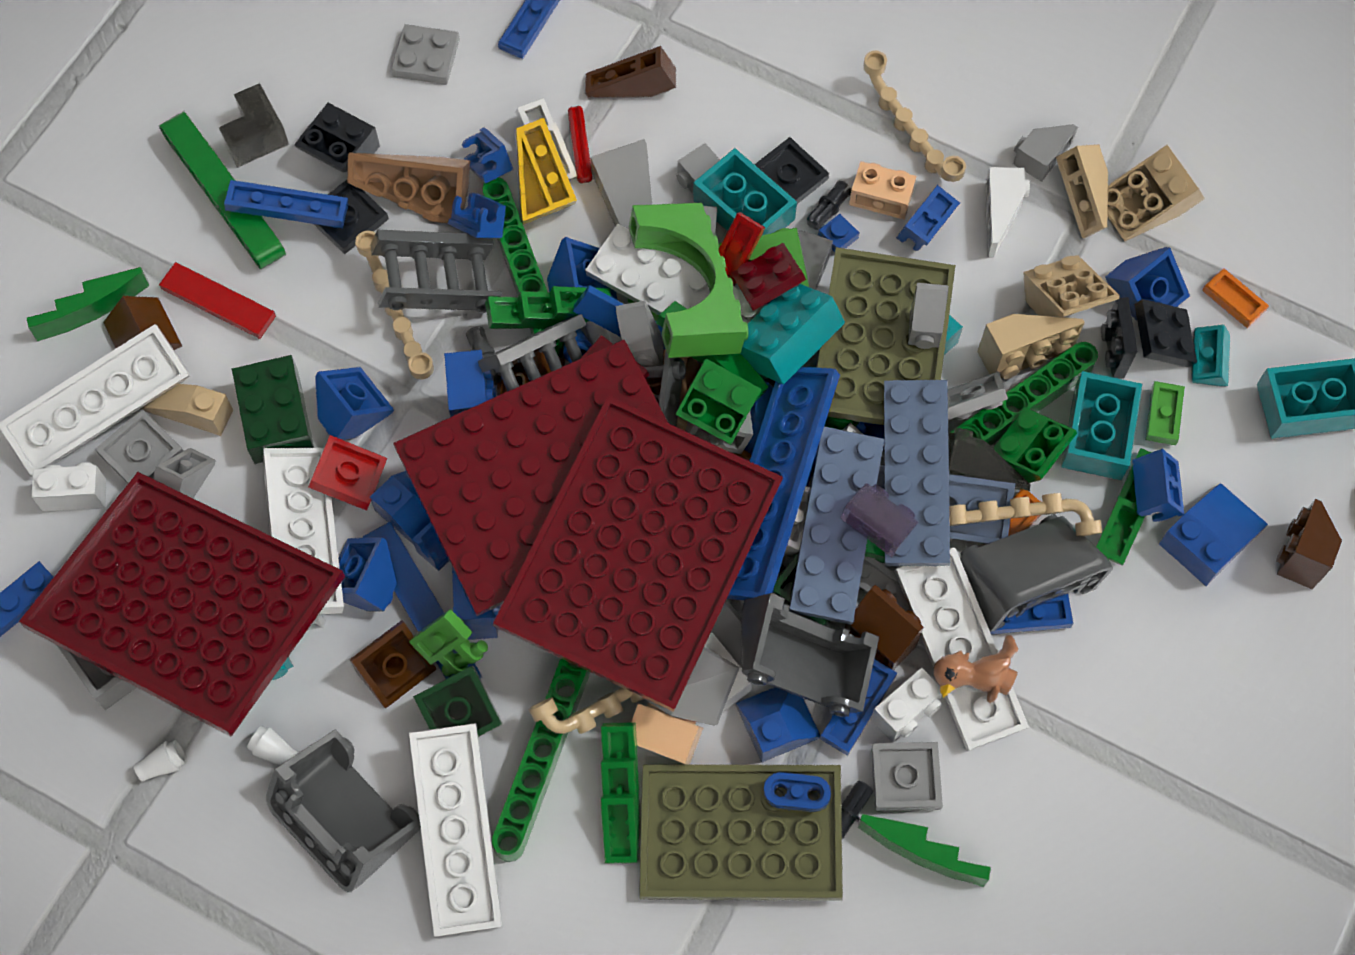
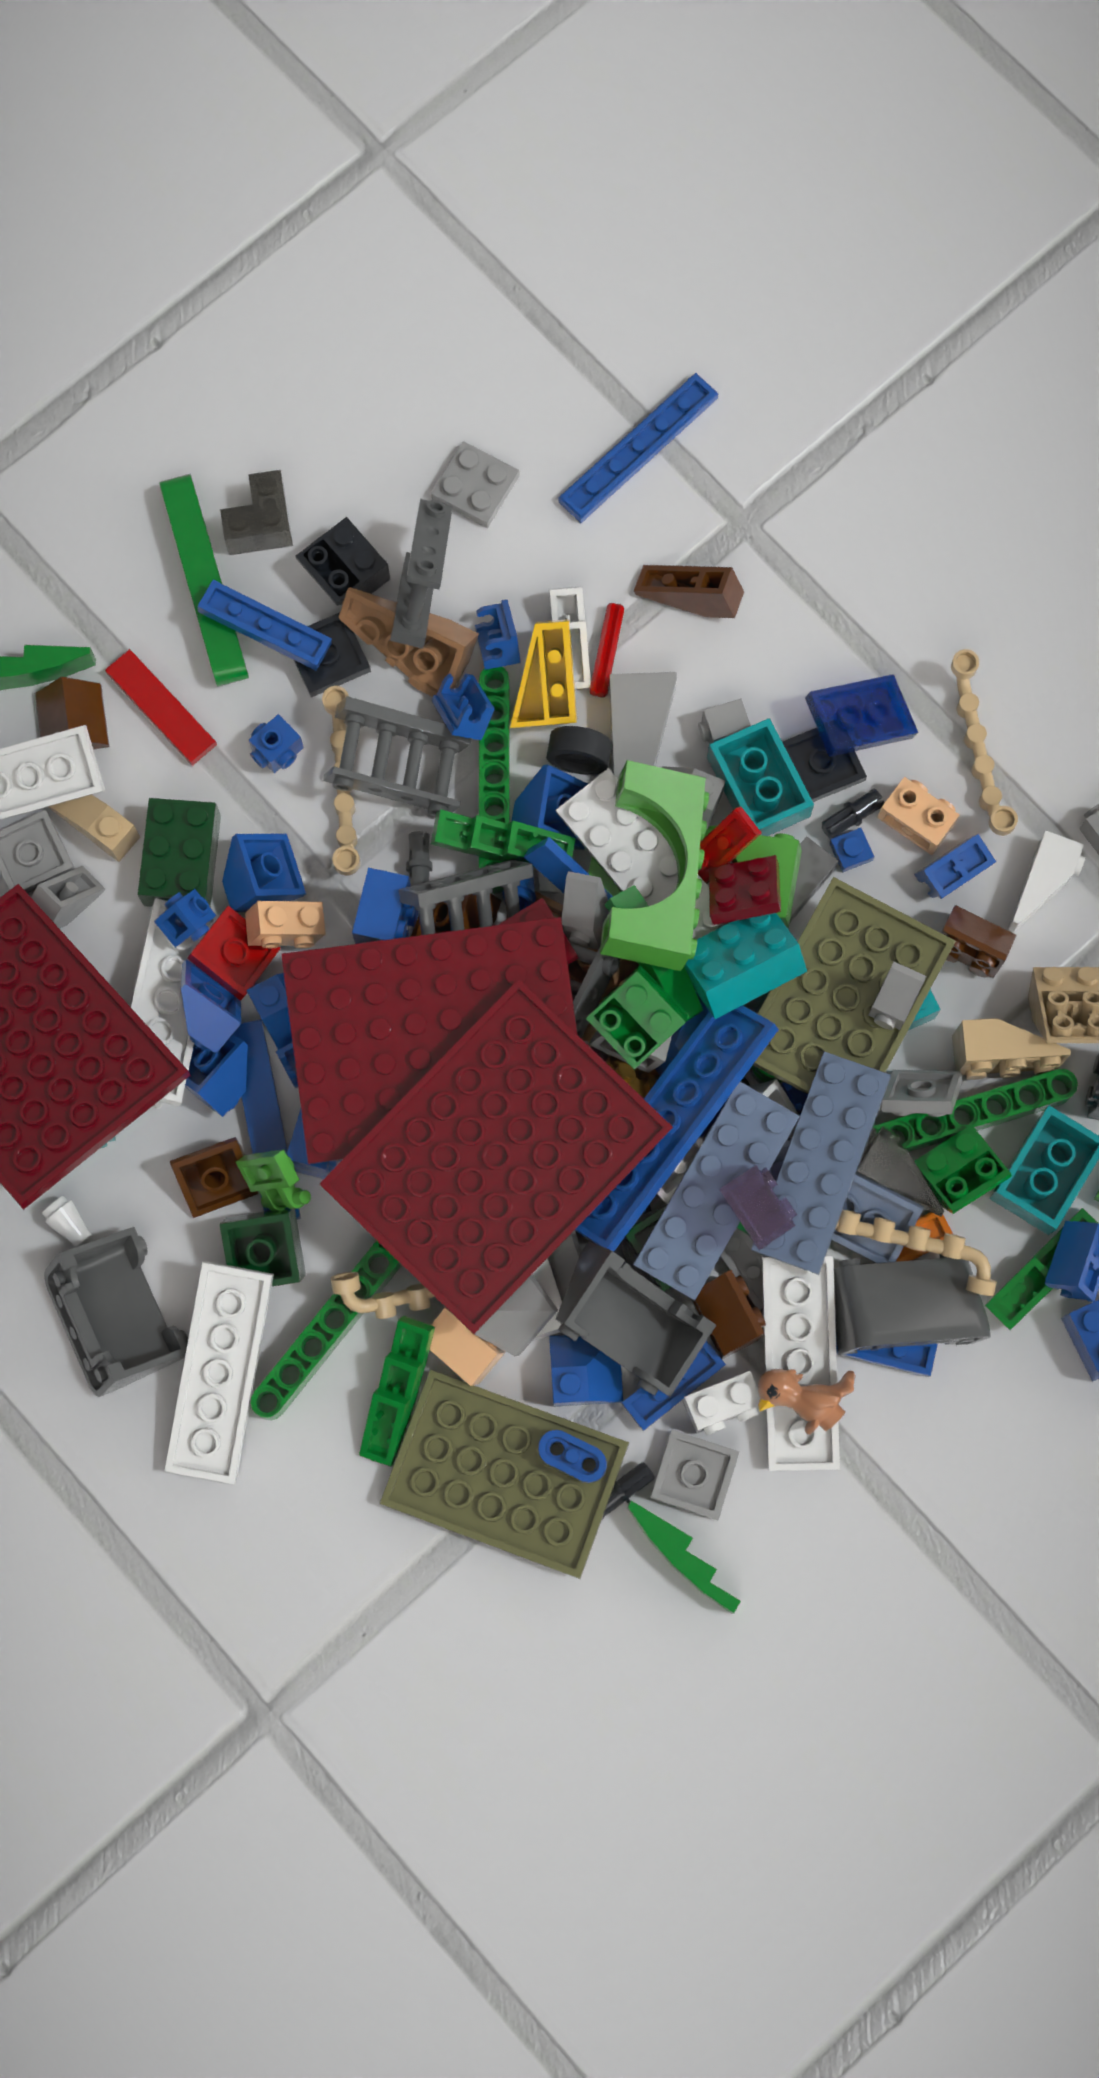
camera: 20 degrees right, 10 degrees up
(296, 452) = (185, 918): none -> blue brick
(327, 296) = (275, 744): none -> blue brick
(341, 522) = (209, 1008): none -> blue slope
(375, 433) = (285, 924): none -> light nougat brick
(403, 128) = (421, 573): none -> dark grey fence
(586, 210) = (579, 750): none -> black tyre
(806, 127) = (861, 715): none -> clear blue plate
(974, 271) = (978, 942): none -> reddish brown slope

